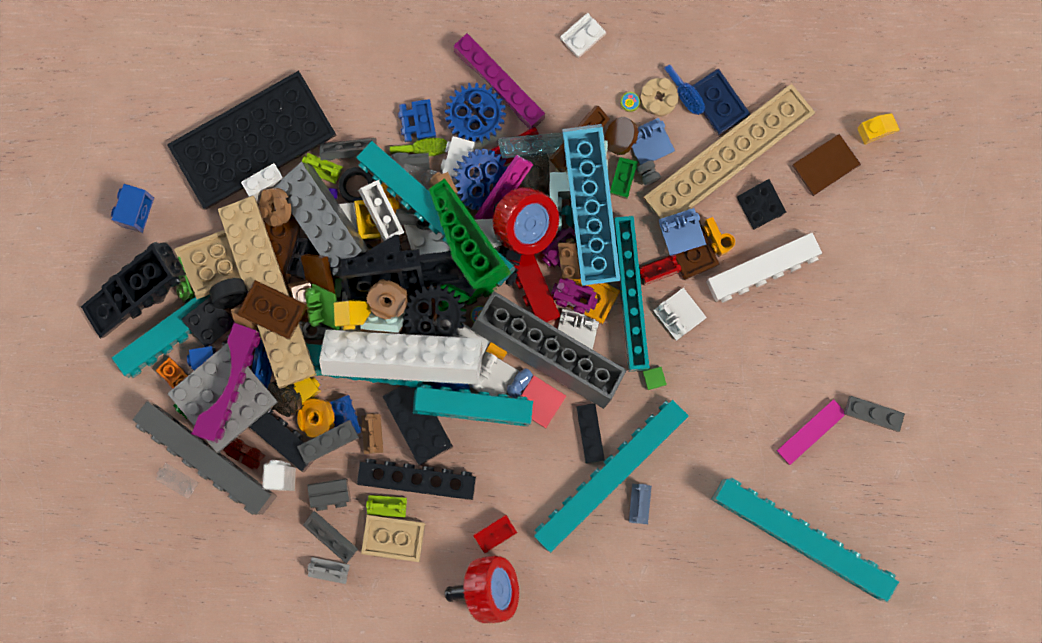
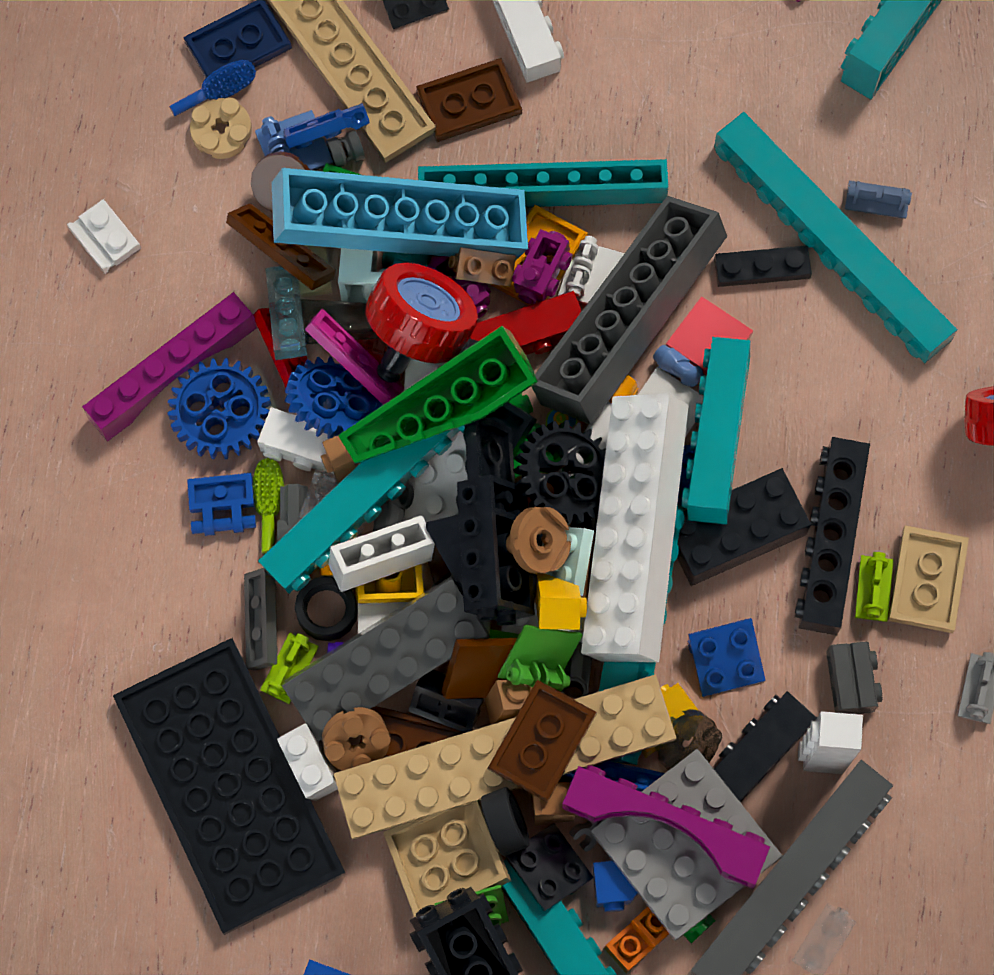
camera: 85 degrees left, 10 degrees down
(251, 455) = (786, 808): clear red hinge -> none
(309, 410) = (736, 677): light orange plate -> none
(328, 442) = (769, 668): dark grey plate -> none
(330, 537) = (925, 680): dark grey plate -> none
(372, 433) = (754, 604): medium nougat hinge -> none
(495, 534) = (920, 419): red hinge -> none
(630, 102) = (224, 171): tile -> none
(654, 378) = (679, 164): bright green tile -> none
(659, 269) = (502, 138): red hinge -> none
(660, 158) = (326, 125): none -> blue hinge
(679, 314) = (577, 121): white hinge -> none
(682, 231) = (446, 103): medium blue hinge -> none
(711, 229) = (458, 57): light orange plate -> none

